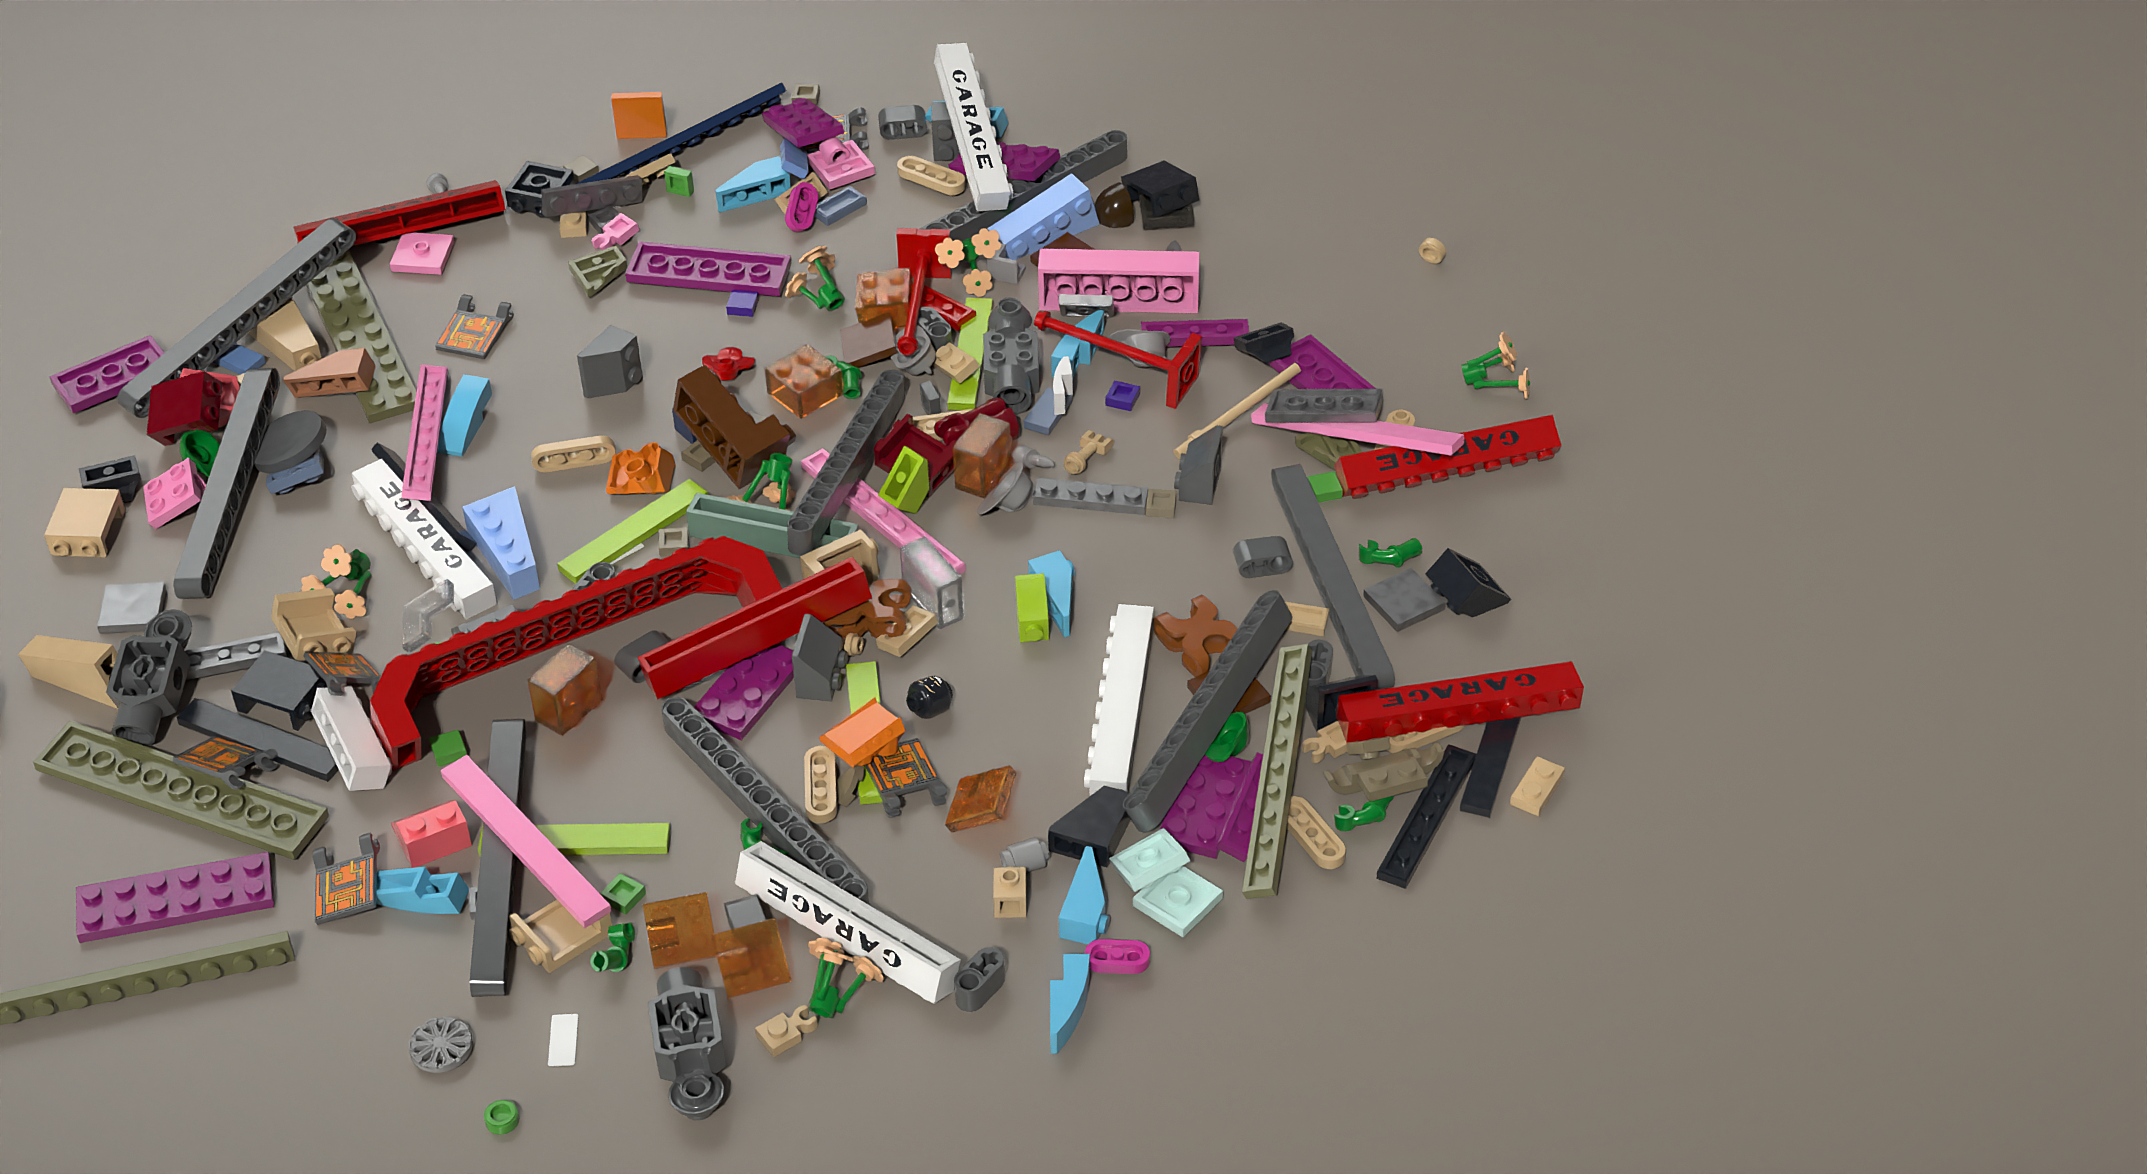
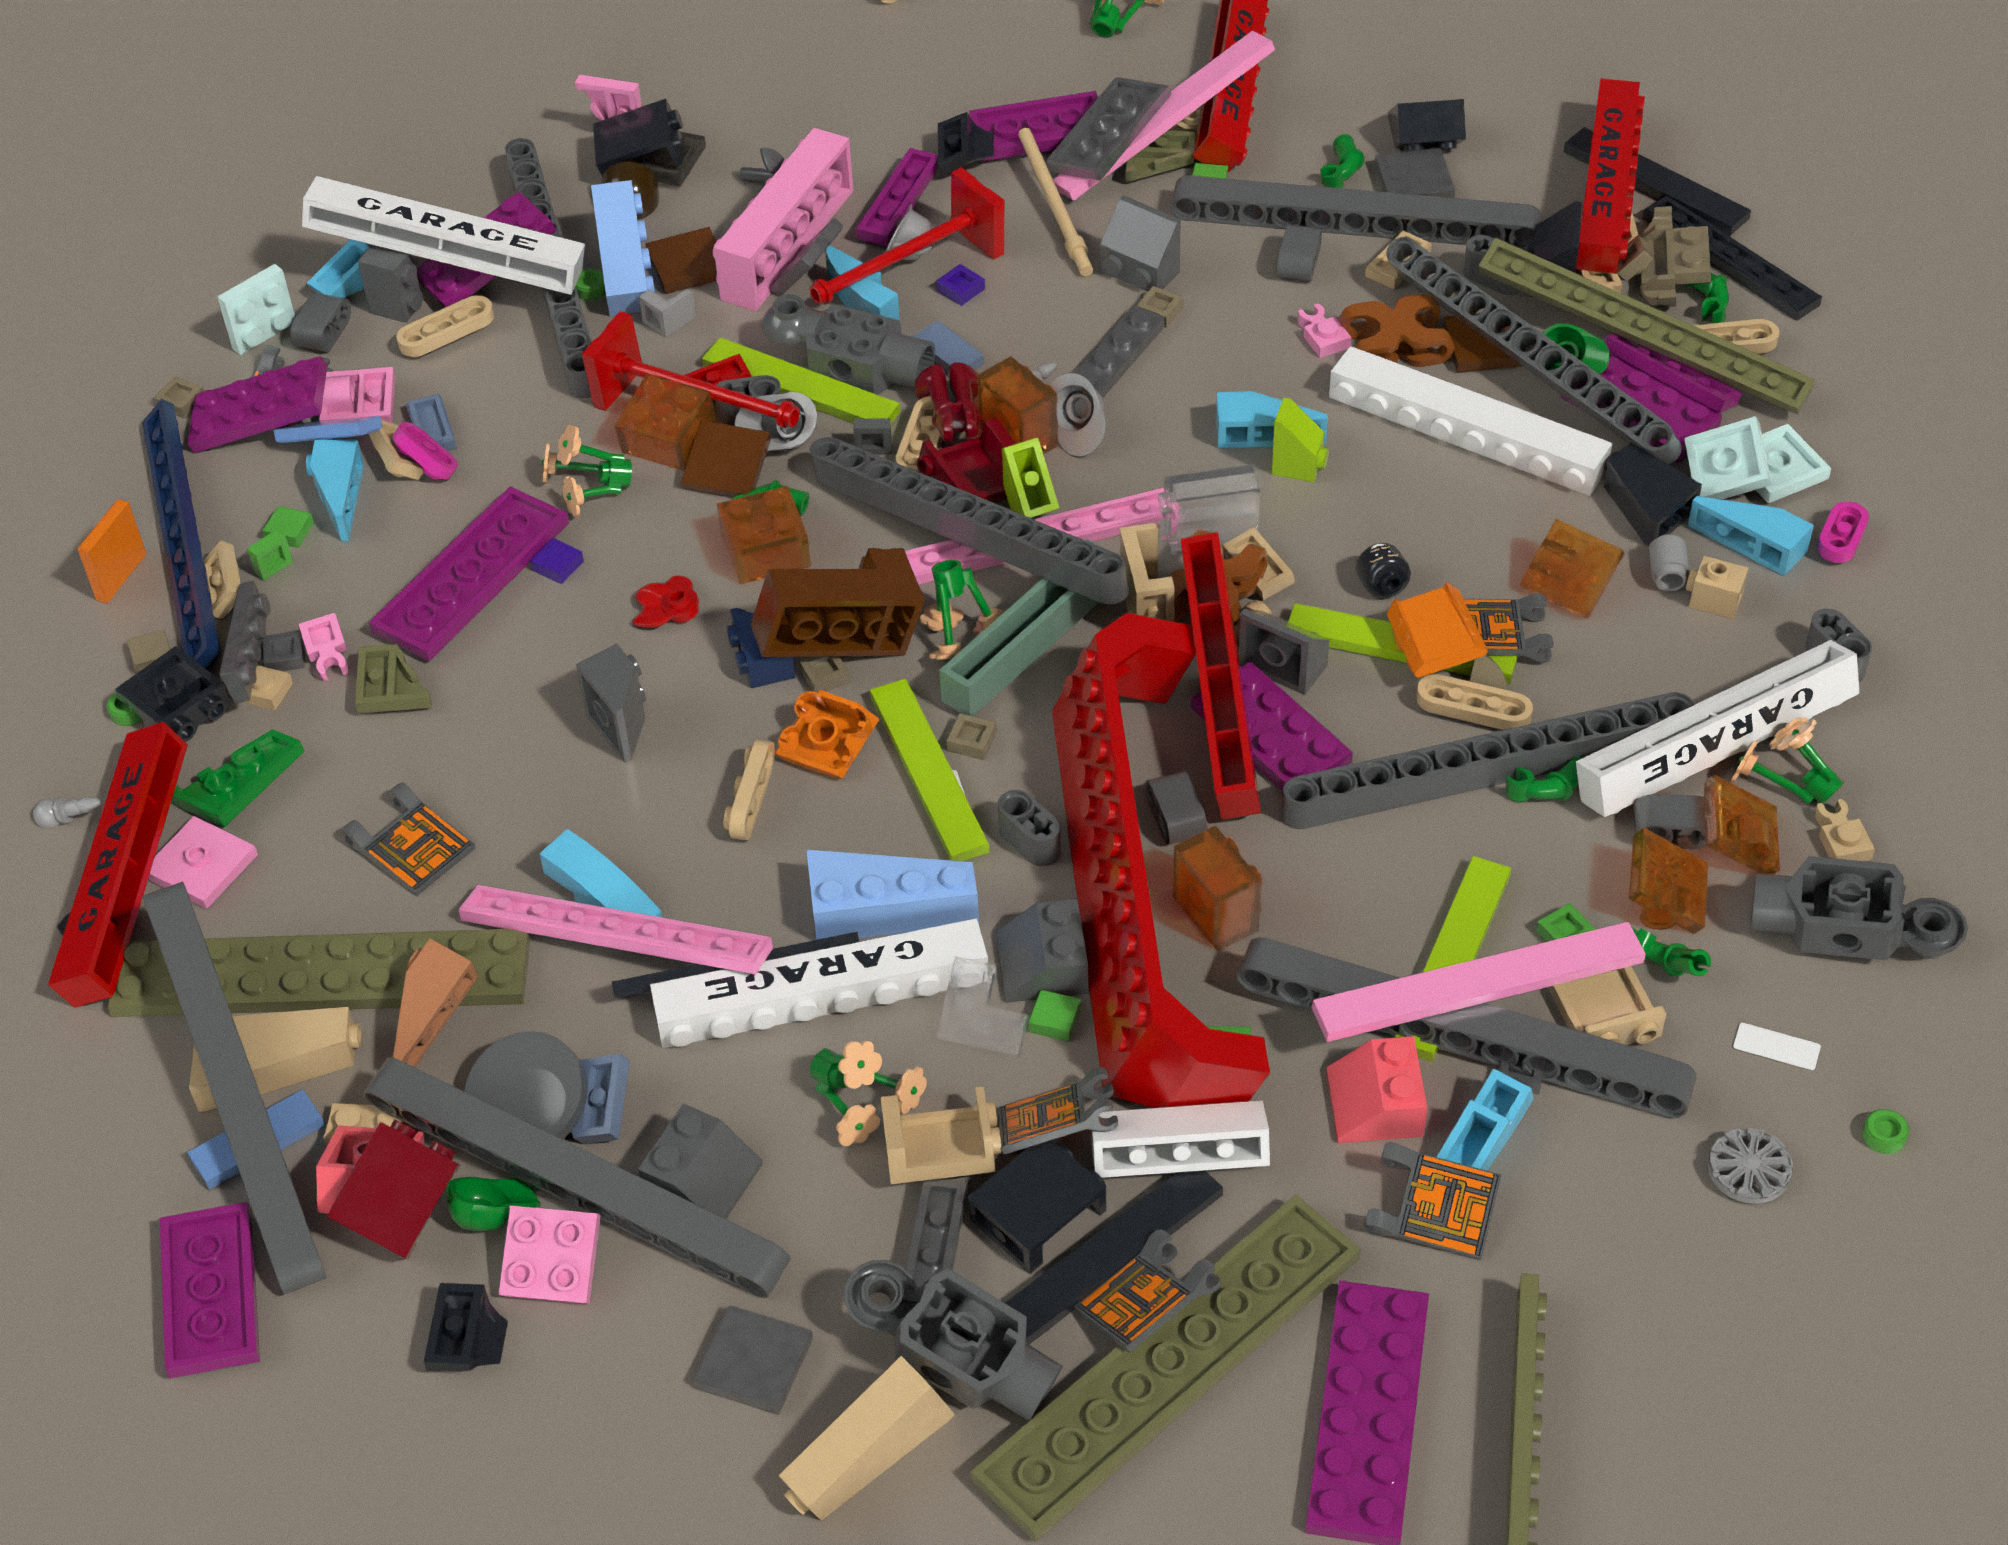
camera: 65 degrees left, 5 degrees up
(83, 521) = (542, 1378): tan panel -> none
(258, 532) = (701, 1161): none -> dark grey slope
(492, 243) = (232, 787): none -> green wing
(712, 180) = (291, 523): none -> bright green tile
(884, 85) = (257, 309): none -> light aqua plate
(955, 362) = (831, 391): tan plate -> none
(969, 250) = (648, 327): light nougat plant -> none
(1062, 385) = (937, 319): white slope -> none
(1068, 999) = (1897, 586): medium azure slope -> none
(1076, 462) = (1055, 349): tan hinge -> none
(1179, 599) = (1323, 334): none -> bright pink plate
(1185, 156) = (609, 96): none -> bright pink wing
(1537, 786) = (1725, 172): tan plate -> none

